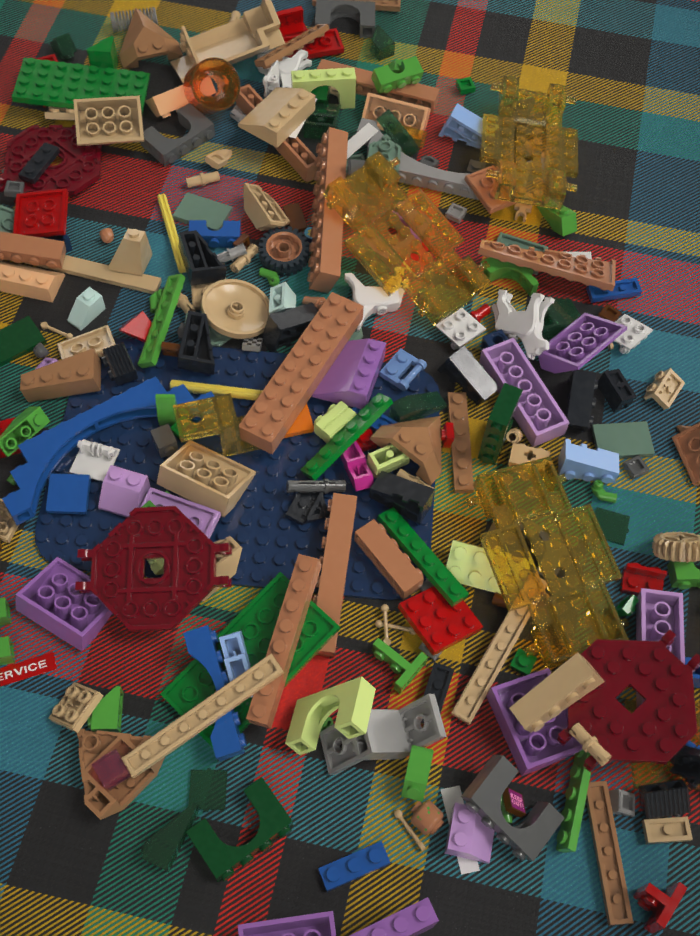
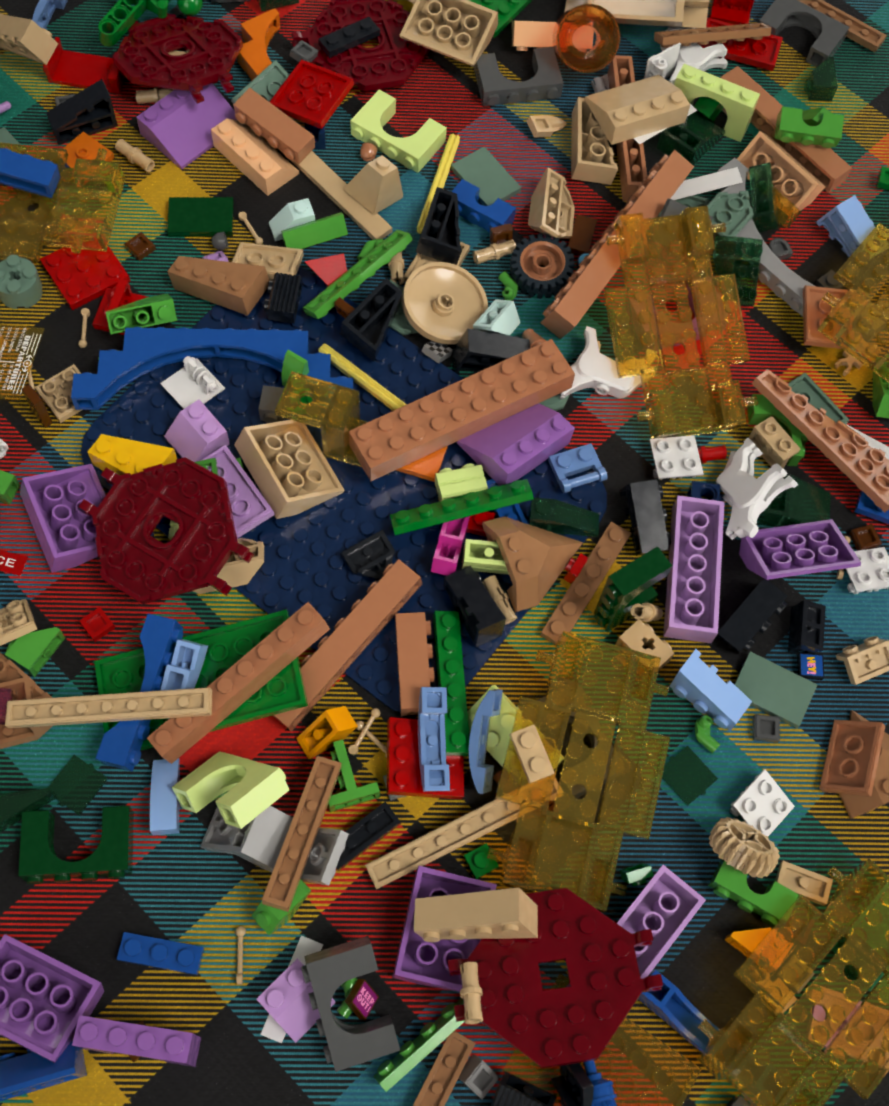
camera: 30 degrees right, 5 degrees up
(68, 494) = (144, 405): blue tile -> none
(84, 534) = (128, 455): none -> yellow wedge
(108, 308) = (315, 232): none -> bright green tile
(140, 217) = (410, 151): none -> yellowish green arch
(142, 667) = (97, 624): none -> red plate
(202, 179) = (511, 140): tan pin -> none
(232, 253) = (480, 239): light grey axle -> none
(261, 158) = (590, 148): none -> tan wedge
(280, 756) = (163, 801): none -> light blue slope
(316, 486) = (392, 541): dark grey pin -> none
(361, 641) = (327, 728): none -> light orange slope
(401, 716) = (301, 834): none -> medium nougat plate
(415, 178) = (742, 258): none -> clear green slope
(427, 817) = (264, 954): nougat head -> none
(439, 600) = (432, 740): none -> medium blue slope
(456, 213) = (769, 323): light grey tile -> none
(484, 601) = (483, 773): none -> medium blue slope
(514, 566) = (531, 754): none -> tan plate
(515, 284) = (773, 442): none -> tan bracket
(634, 412) = (810, 666): none -> tile
(637, 577) = (678, 856): red bracket -> none
(667, 514) = (762, 804): none -> white hinge

